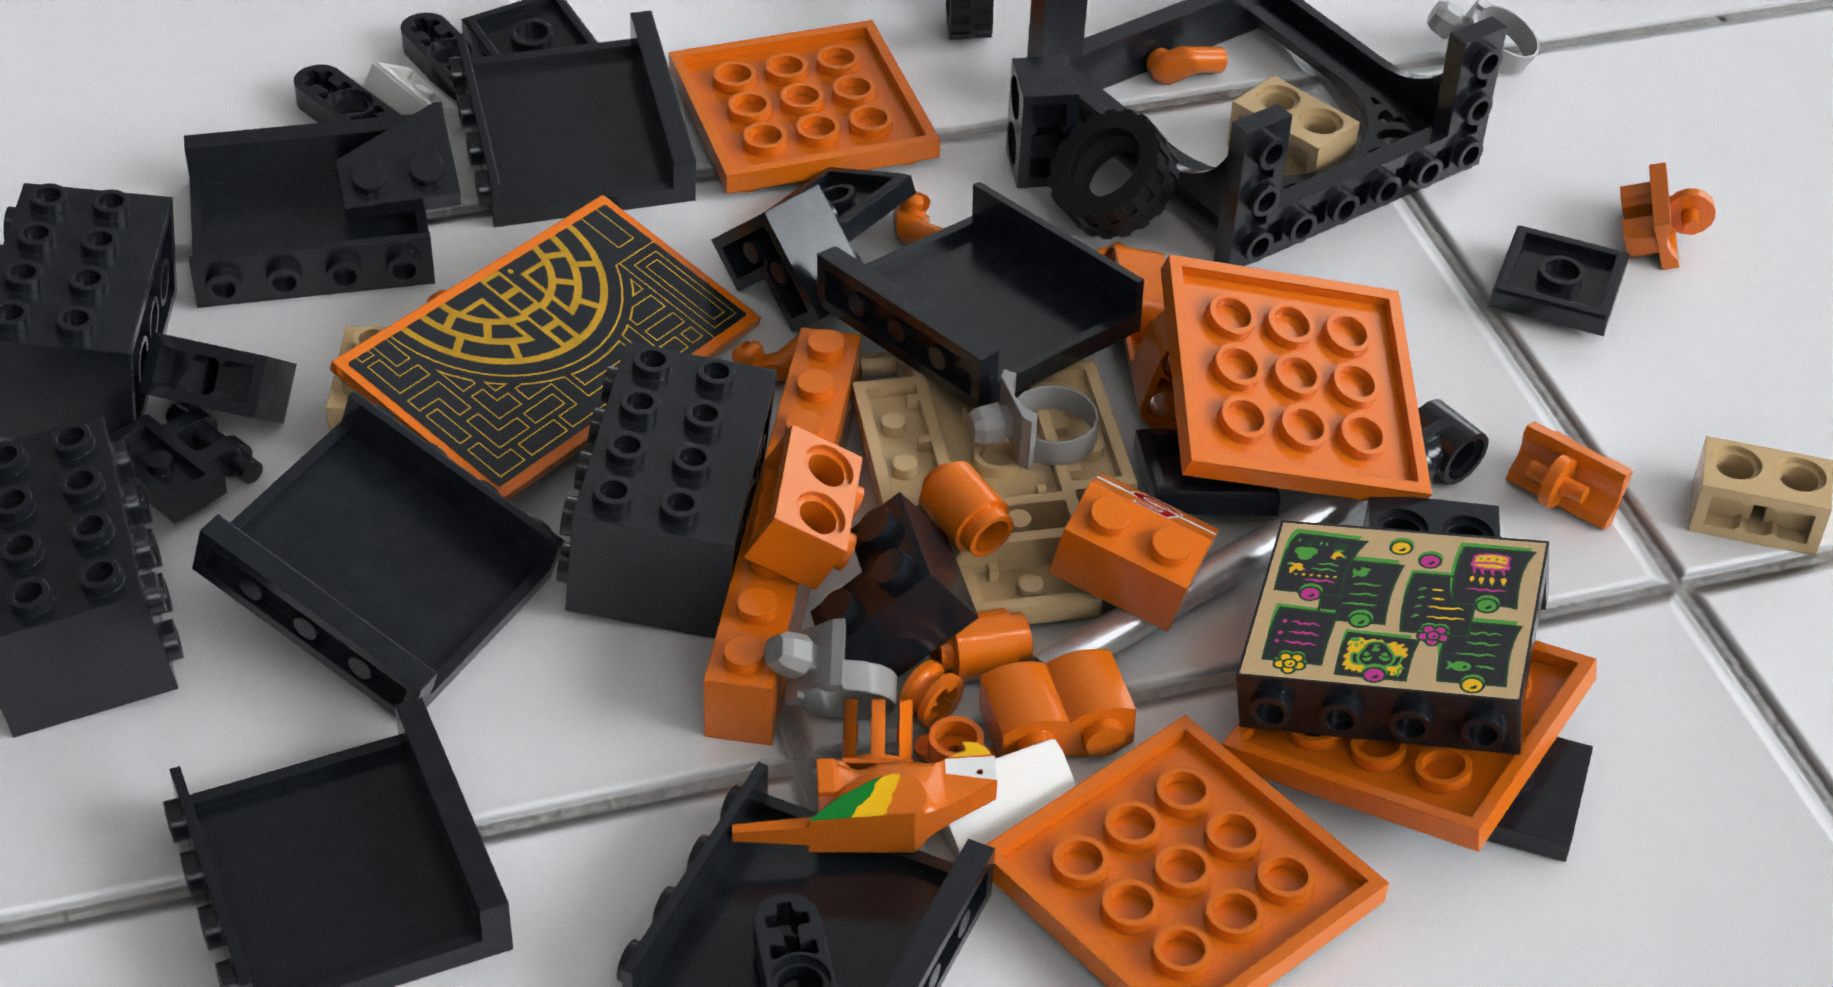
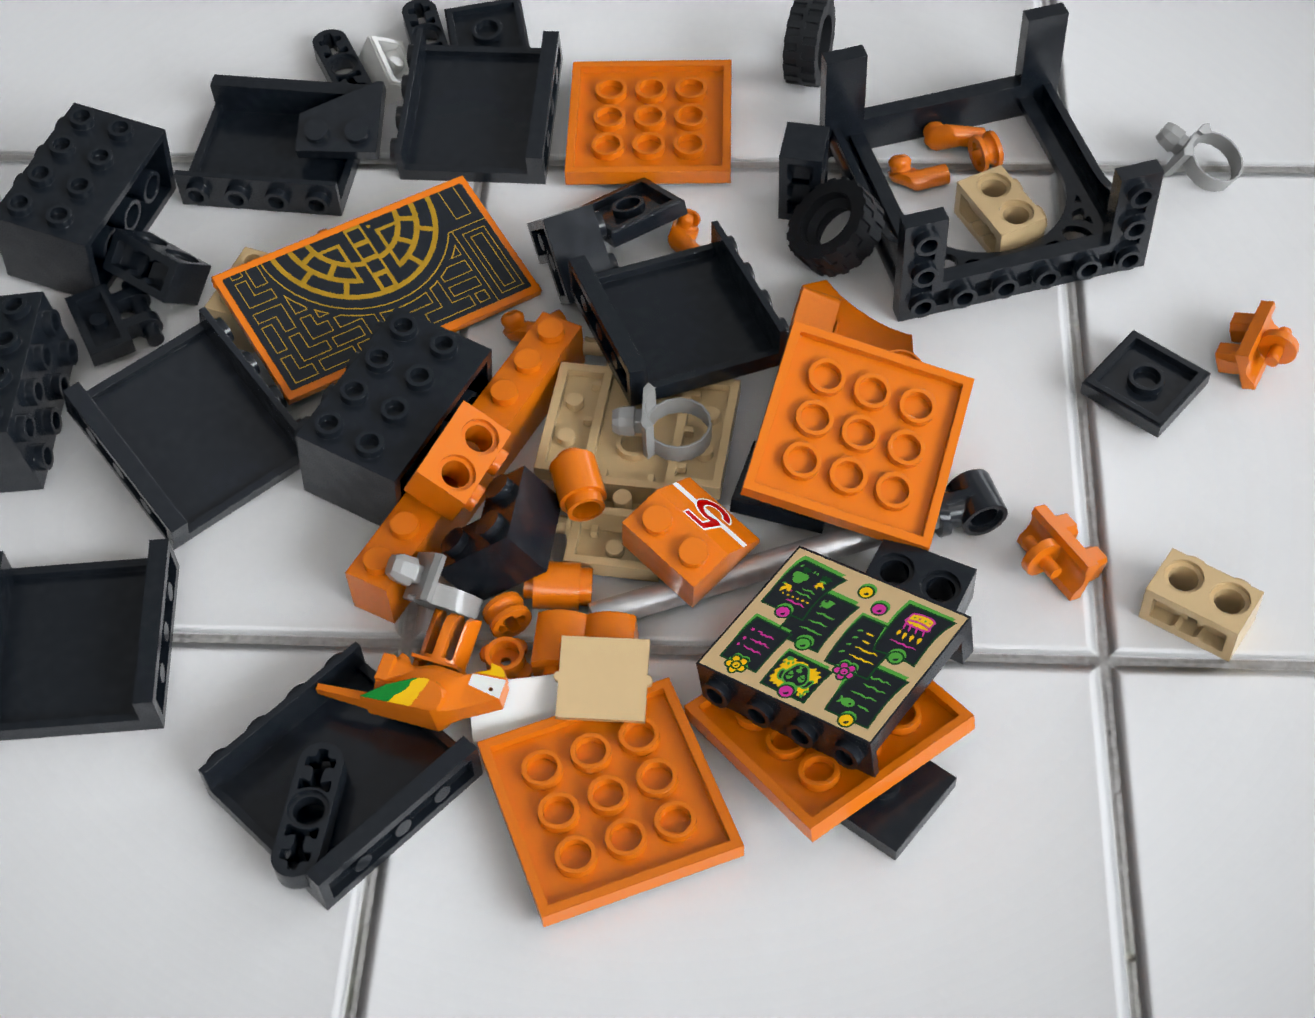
camera: 25 degrees right, 10 degrees up
(1112, 731) = (603, 679): none -> tan piece
(1170, 114) = (914, 178): none -> orange arm
(1236, 70) = (985, 151): none -> orange bush

